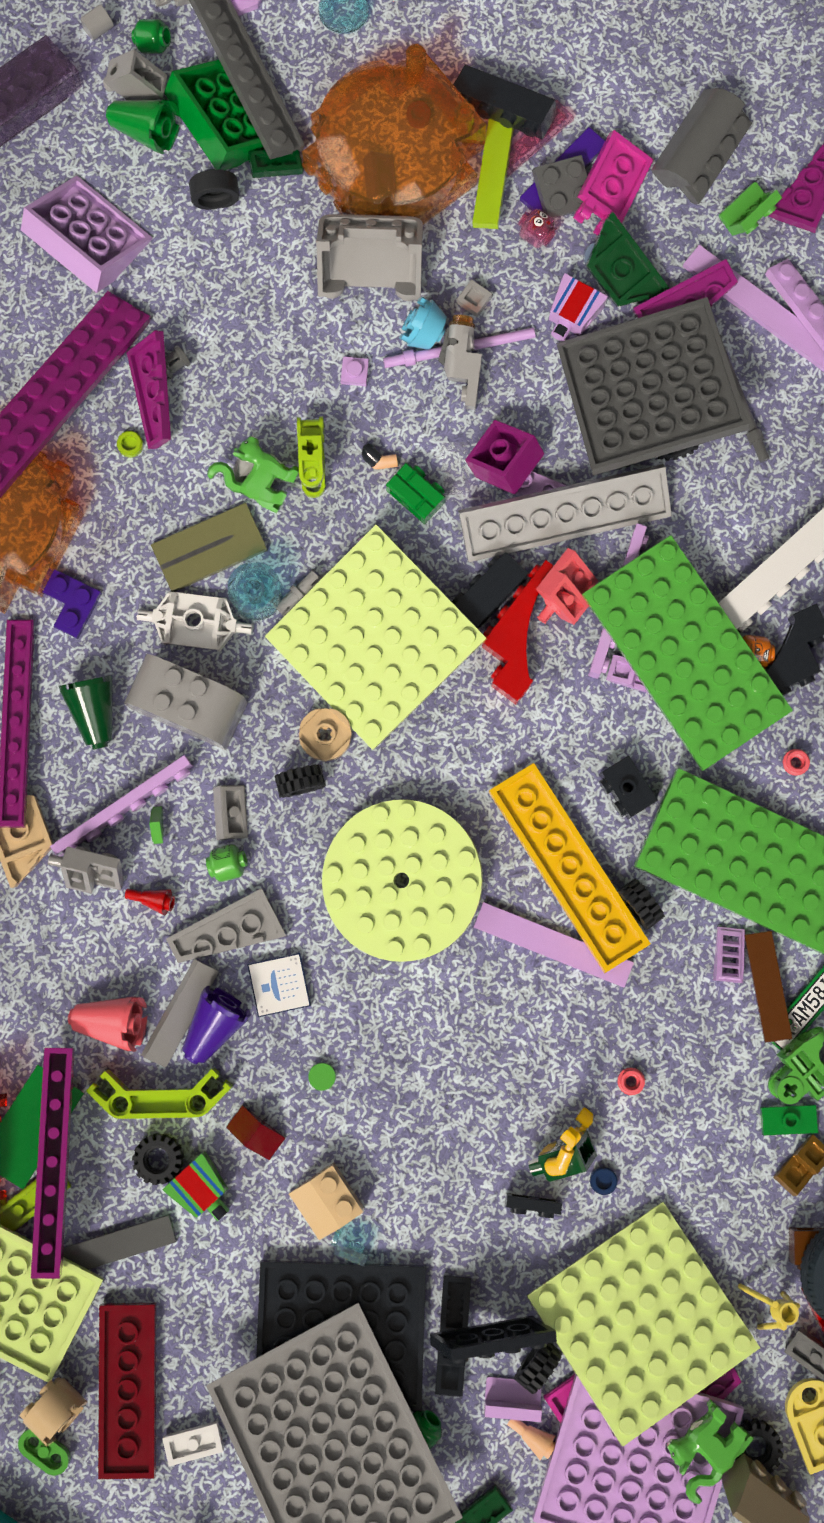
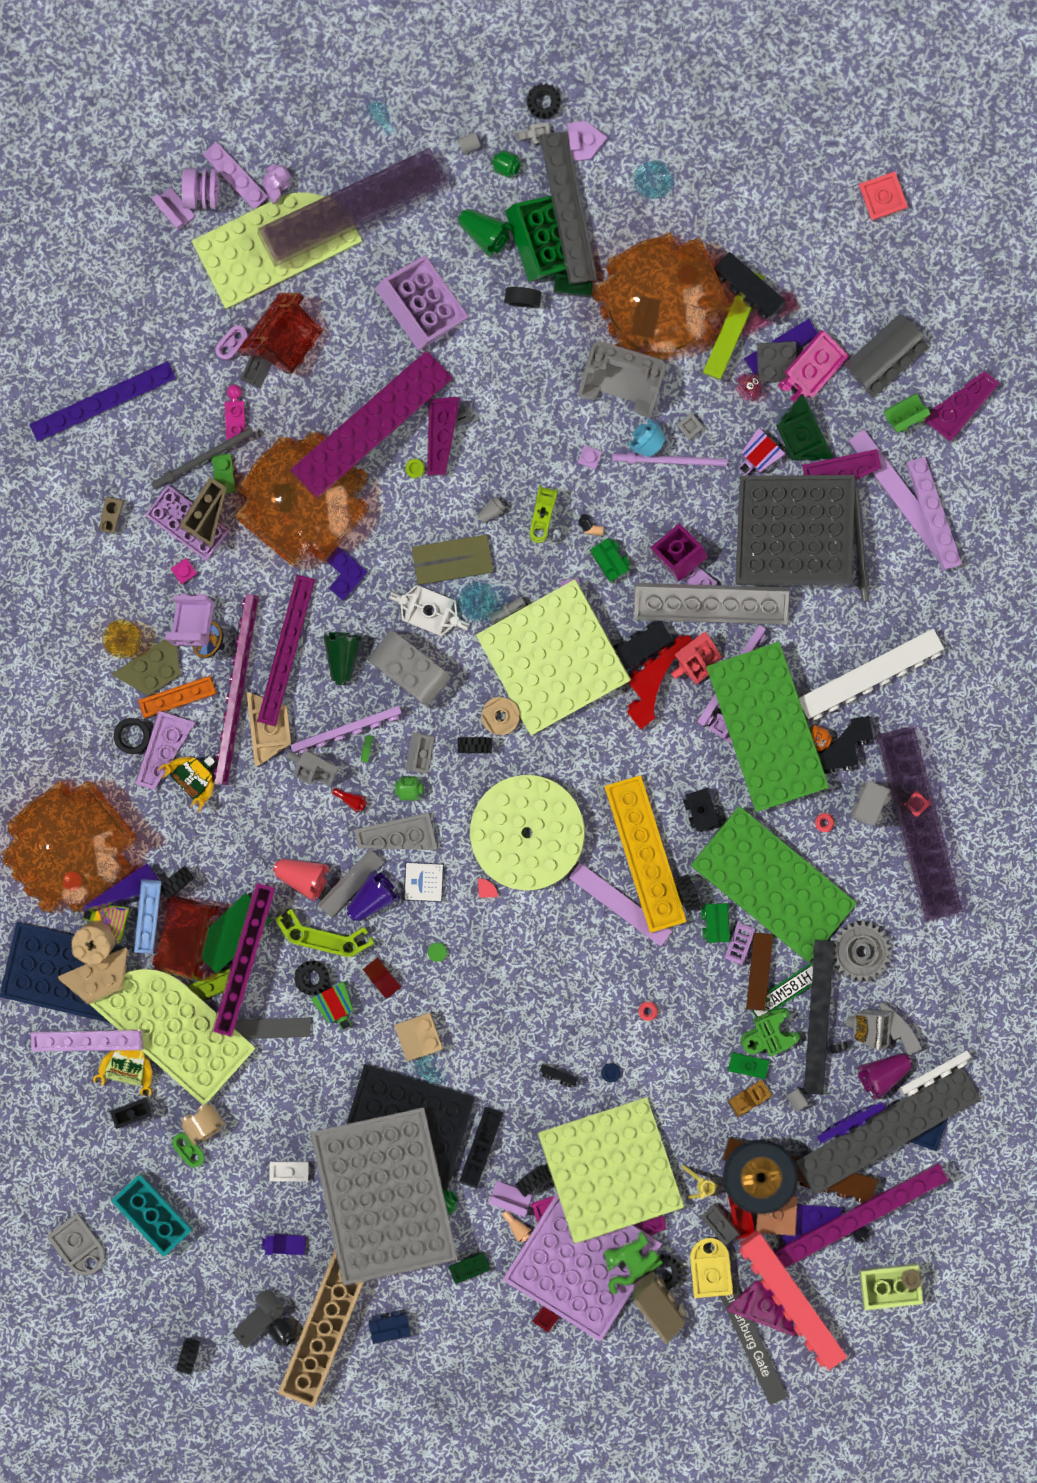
camera: 10 degrees right, 5 degrees up
(127, 1391) = (253, 1125): dark red plate -> none
(135, 77) = (478, 193): light grey torso -> none
(259, 480) = (502, 521): bright green animal -> none
(367, 972) = (486, 889): none -> coral tile
(458, 359) = (665, 470): light grey plate -> none
(493, 1338) = (503, 1152): black plate -> none
(570, 1154) = (591, 1048): torso -> none
(691, 935) = (716, 923): none -> green brick

